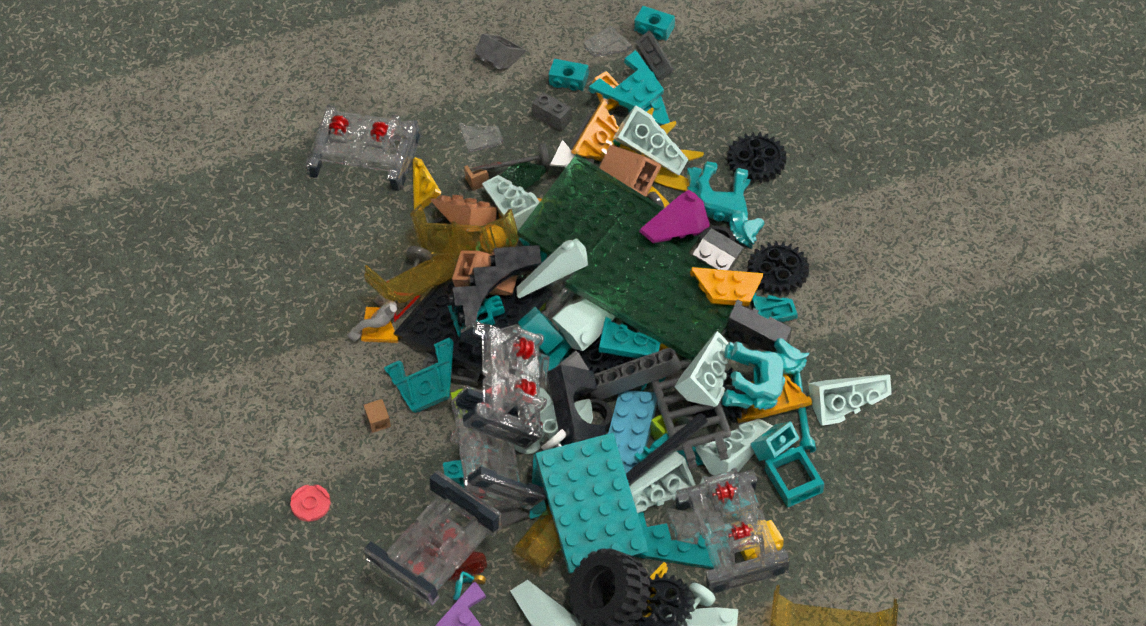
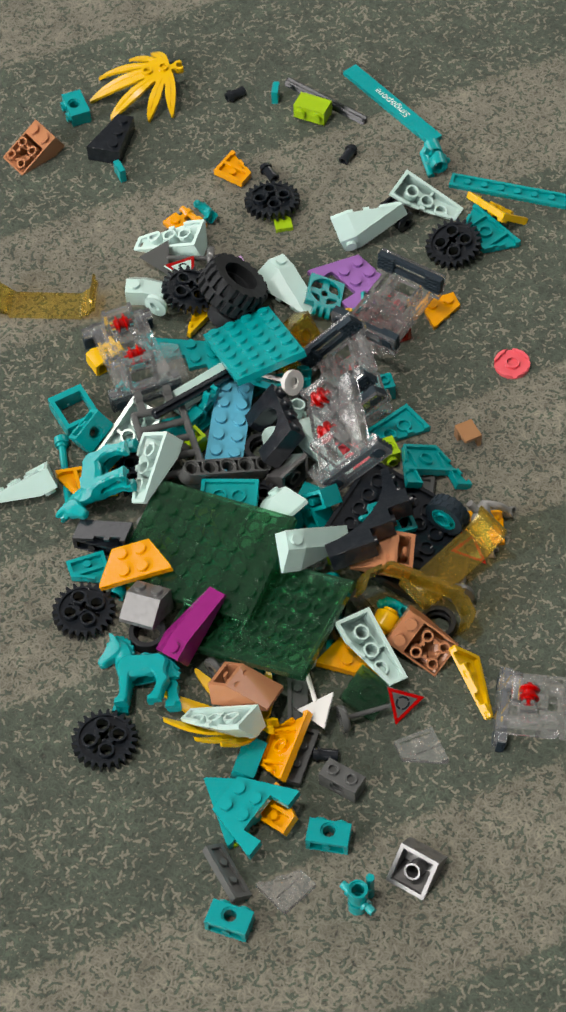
camera: 175 degrees right, 0 degrees up
(371, 582) = (441, 309): none -> light orange wing
(417, 307) = (447, 514): none -> black wheel
(437, 438) = (400, 424): none -> teal wing
(475, 178) = (418, 686): medium nougat panel -> none
(508, 585) = (321, 305): none -> teal piece
(548, 25) = (358, 895): none -> teal pin
(567, 137) = (324, 754): none -> black pin

